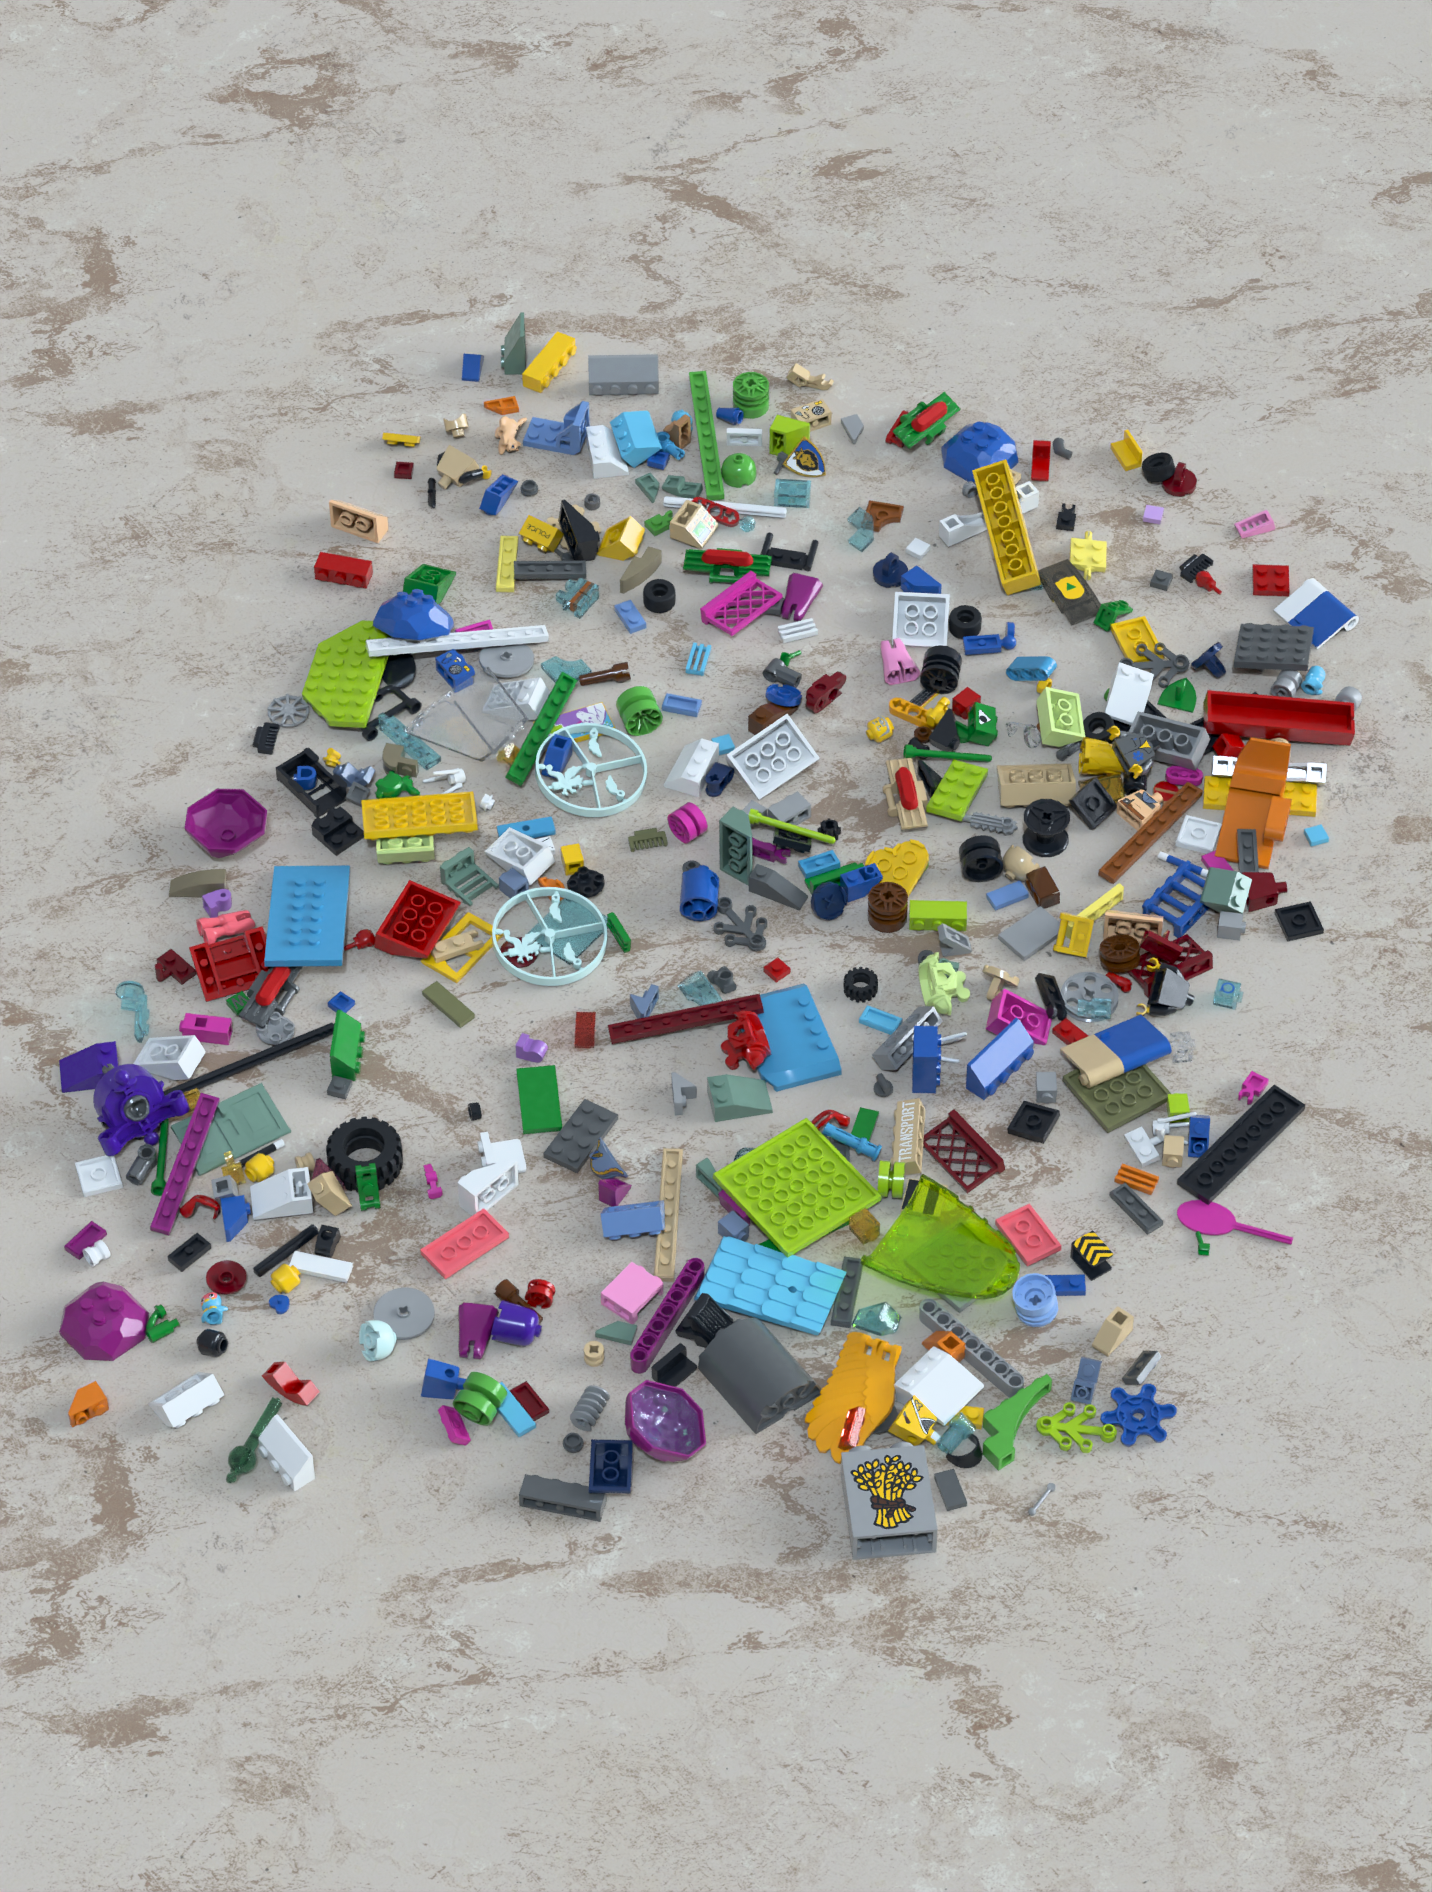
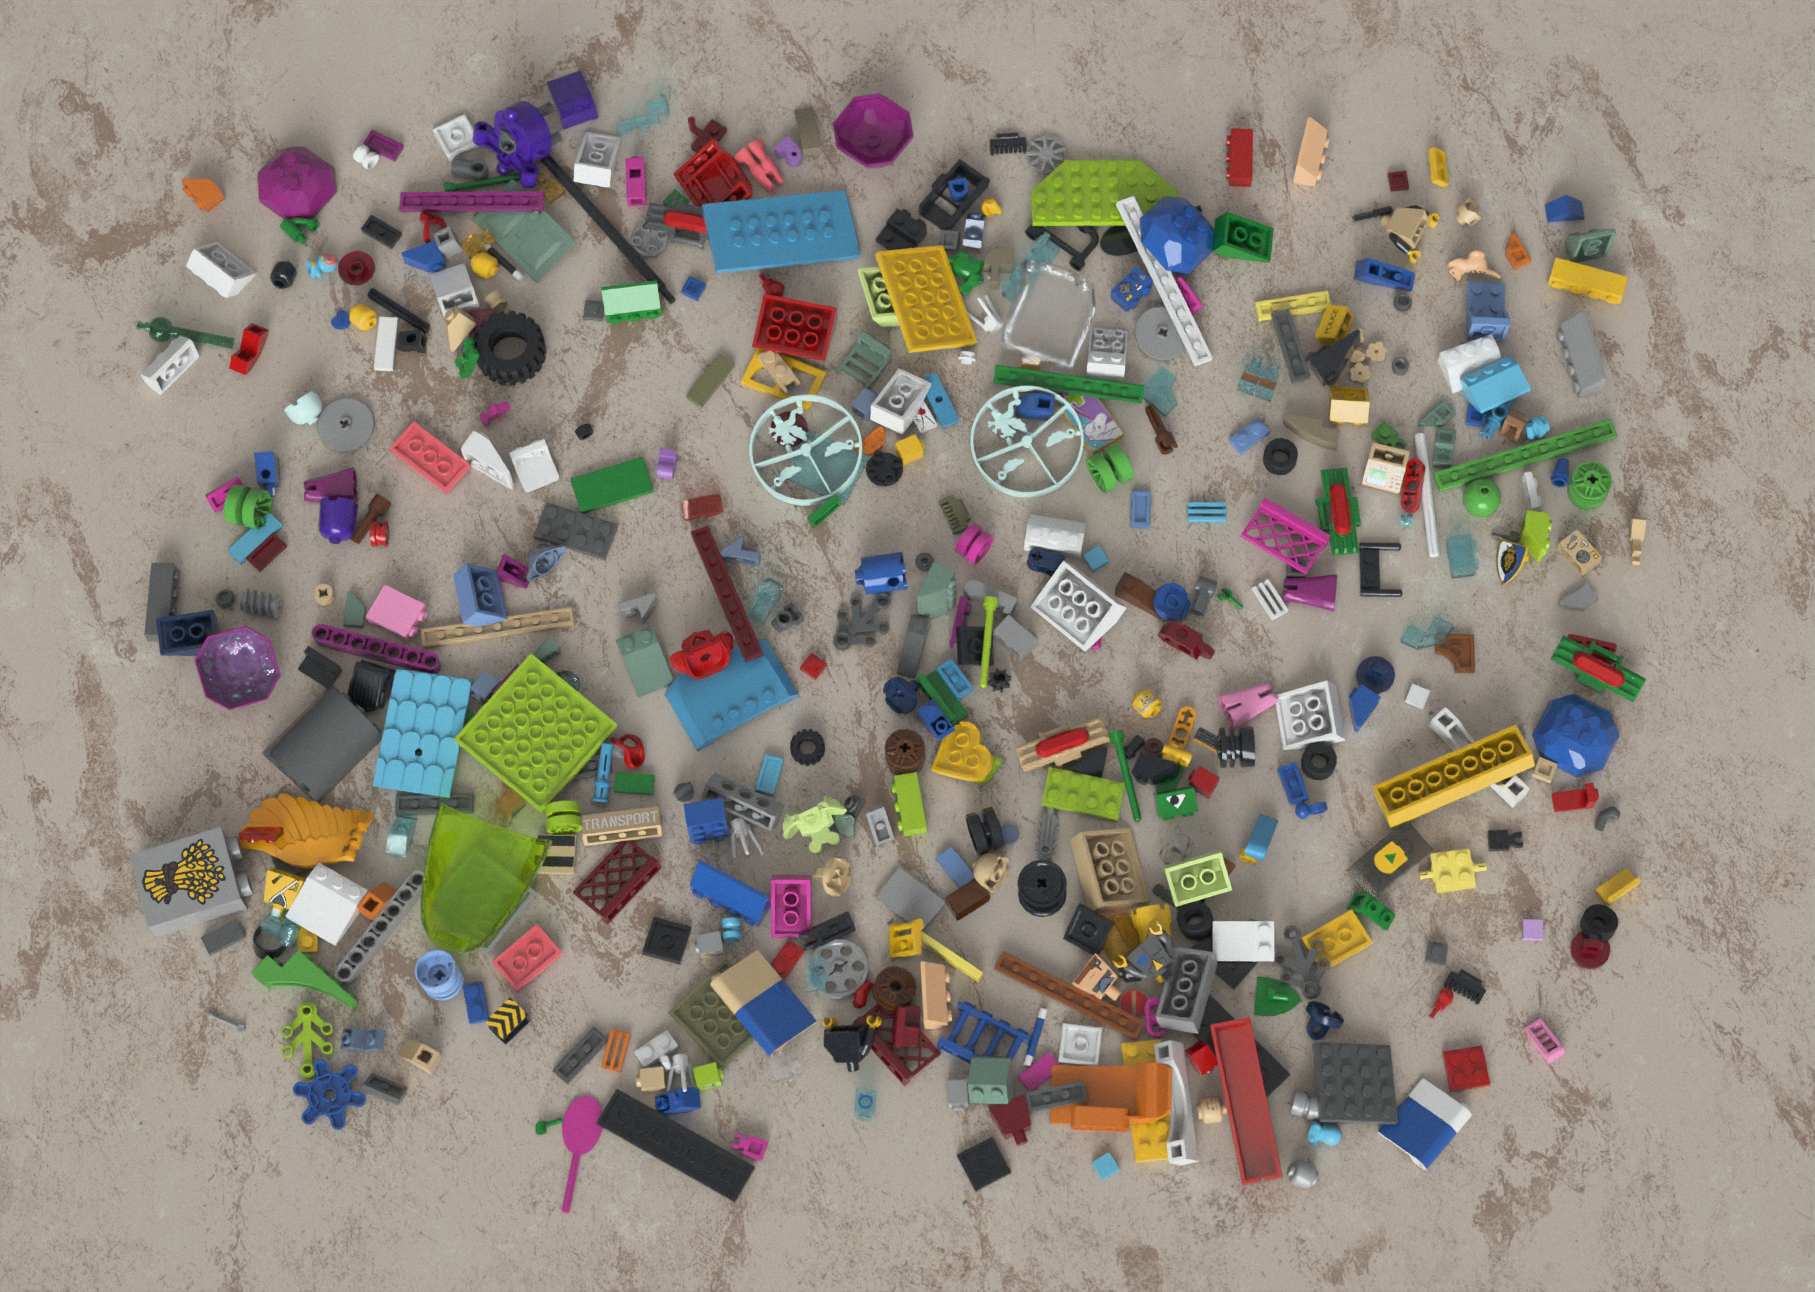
camera: 80 degrees right, 20 degrees up
(1030, 1065) = (731, 929): none -> medium azure wheel

